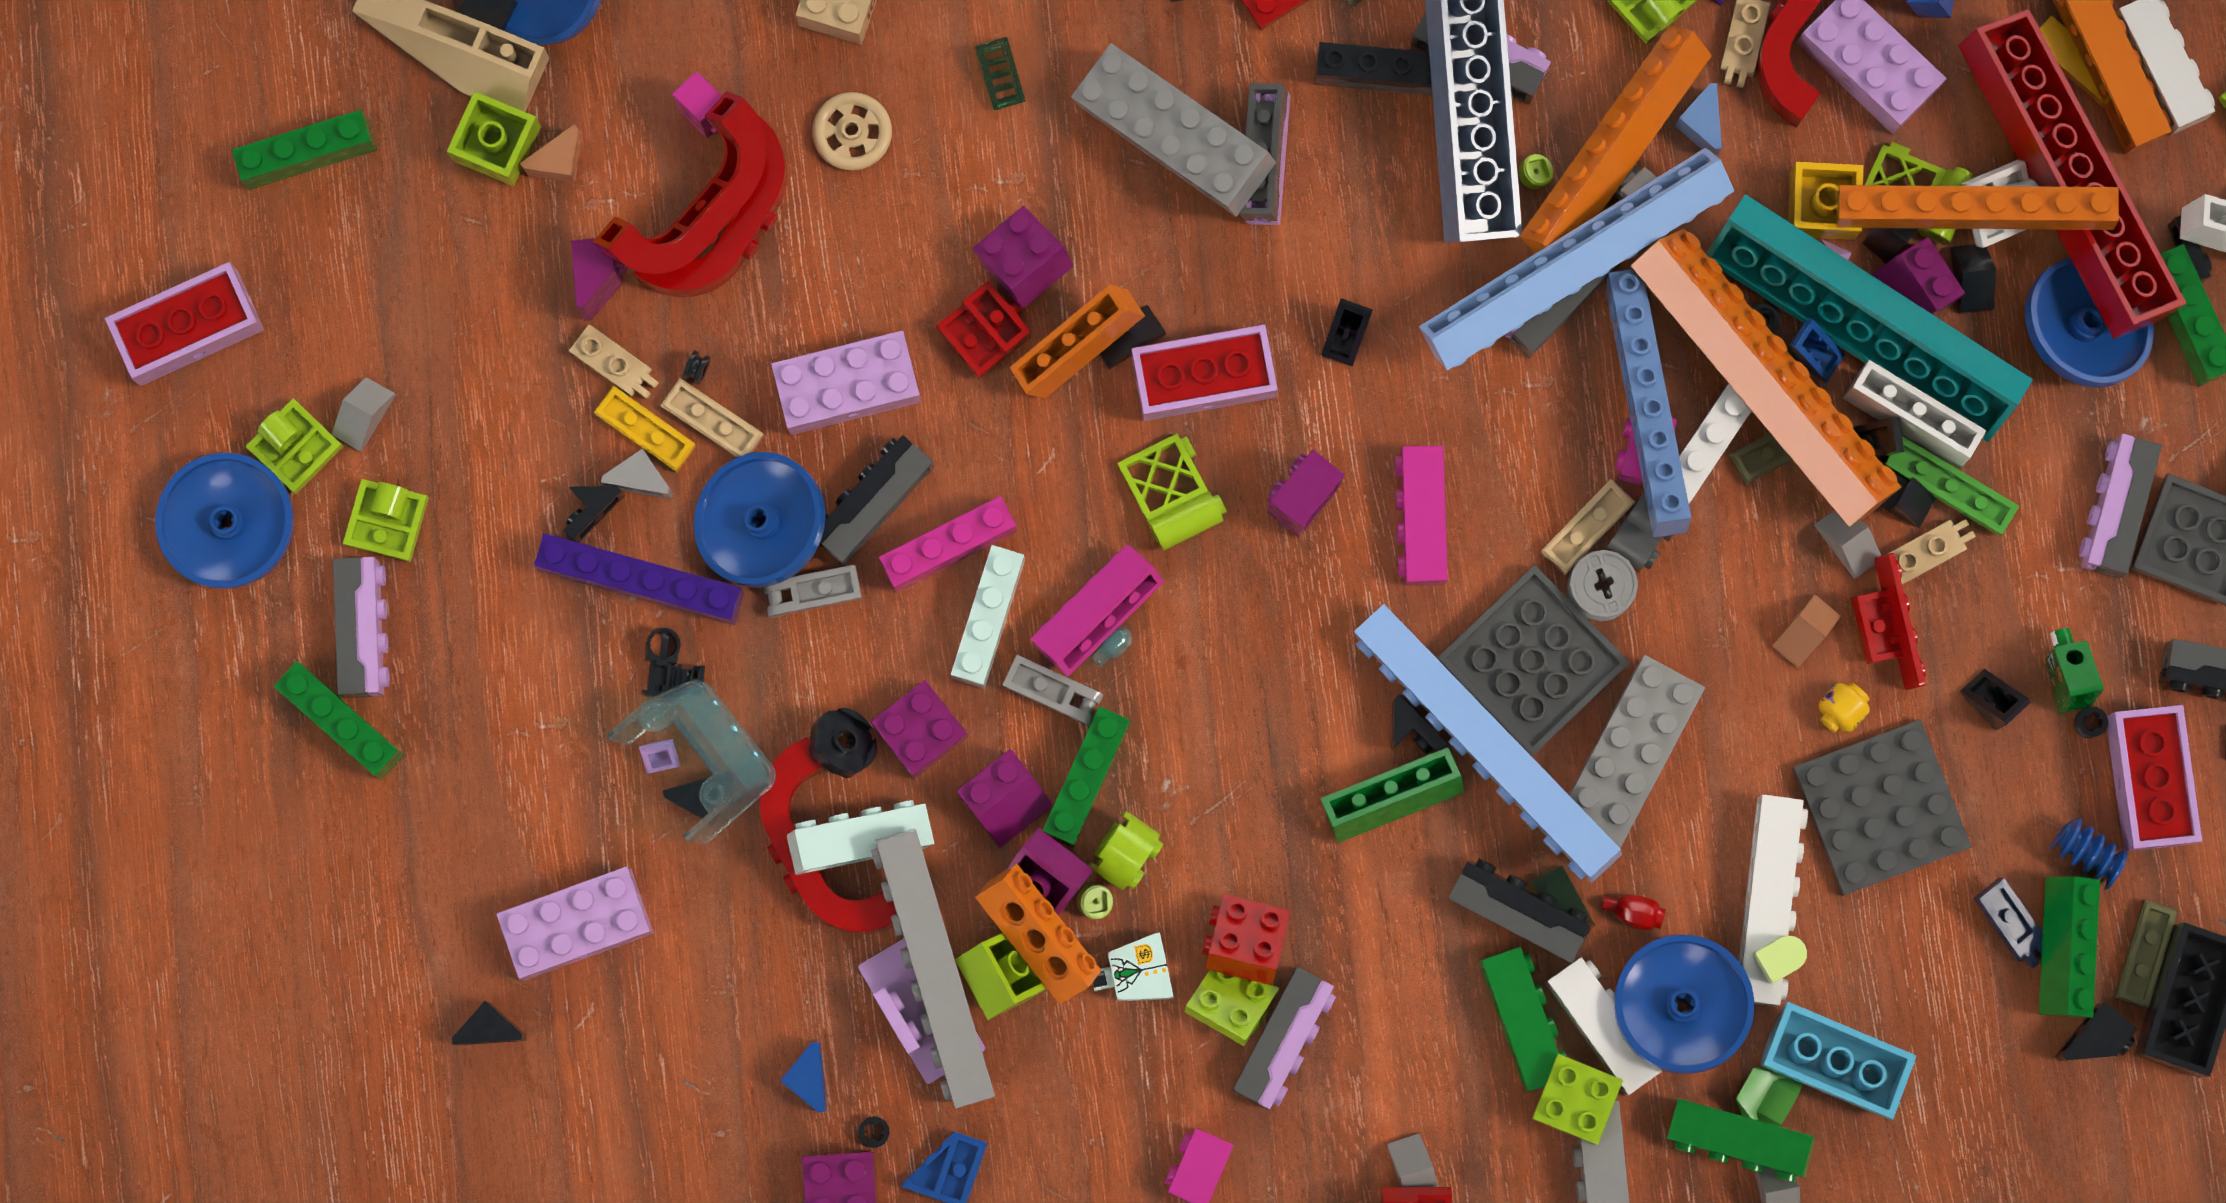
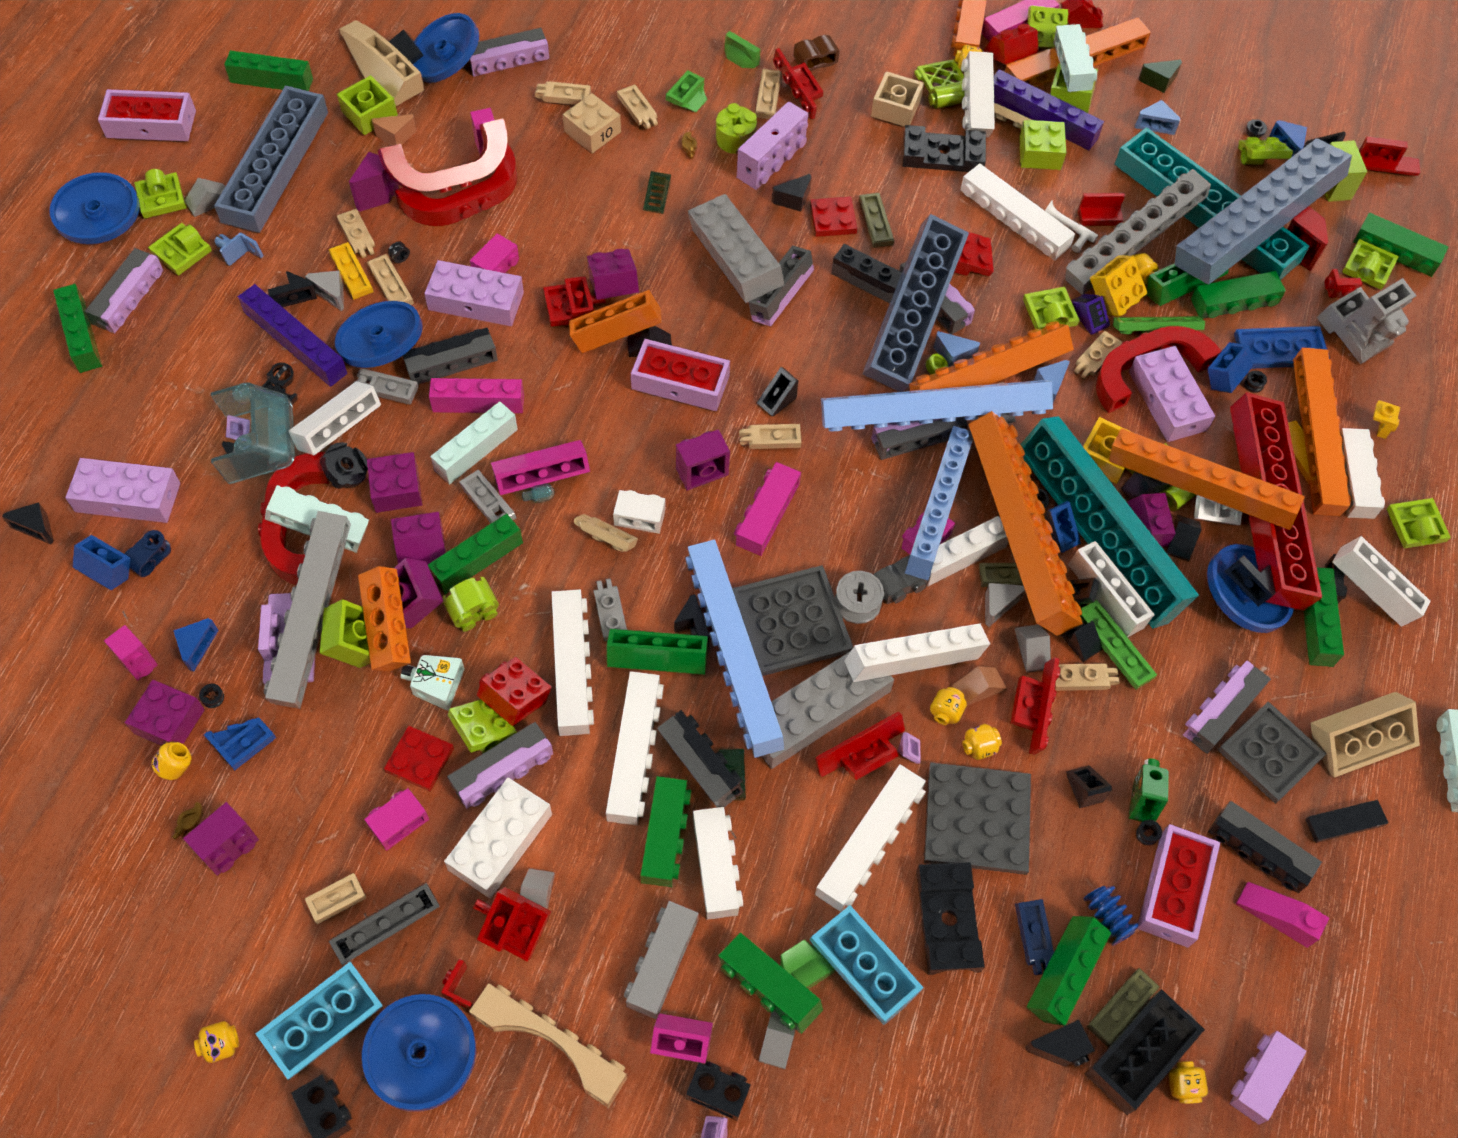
camera: 25 degrees right, 20 degrees down
(418, 304) = (271, 159): none -> sand blue brick
(462, 479) = (235, 248): none -> medium blue bracket
(622, 1037) = (101, 562): none -> blue brick
(665, 1000) = (147, 554): none -> dark blue piece
(750, 1136) = (131, 652): none -> dark pink brick
(787, 680) = (334, 418): none -> white brick
(840, 310) = (496, 255): none -> dark pink brick
(841, 156) = (566, 198): tan plate -> none
(1094, 901) = (436, 627): lime tile -> none
(1176, 1078) = (419, 758): none -> red plate
(1186, 514) = (625, 443): lime piece -> none
(1233, 658) = (605, 532): none -> tan hinge
(1259, 605) = (639, 511): none -> white brick
(1290, 861) = (571, 663): none -> white brick
(1296, 763) = (609, 608): none -> light grey hinge
(1334, 1128) = (498, 837): none -> white brick
(1372, 401) = (771, 436): none -> tan hinge
(1430, 933) = (633, 749): none -> white brick
(1548, 136) = (954, 347): none -> medium blue slope
(1577, 1099) = (669, 895): lime plate -> none
(1587, 527) = (868, 561): tan tile -> none
(1636, 911) = (778, 801): red plant -> none
(1692, 973) = (773, 848): blue dish -> none
(1711, 794) = (864, 750): none -> red bracket
(1718, 638) = (916, 652): none -> white brick
(1761, 760) = (910, 748): none -> lavender slope
(1780, 499) = (1000, 599): none -> light grey slope
(1781, 957) = (859, 871): yellowish green piece -> none
(1782, 681) = (948, 706): none -> yellow head
(1927, 981) = (949, 890): none -> black piece
(2094, 322) = (1256, 584): none -> black slope

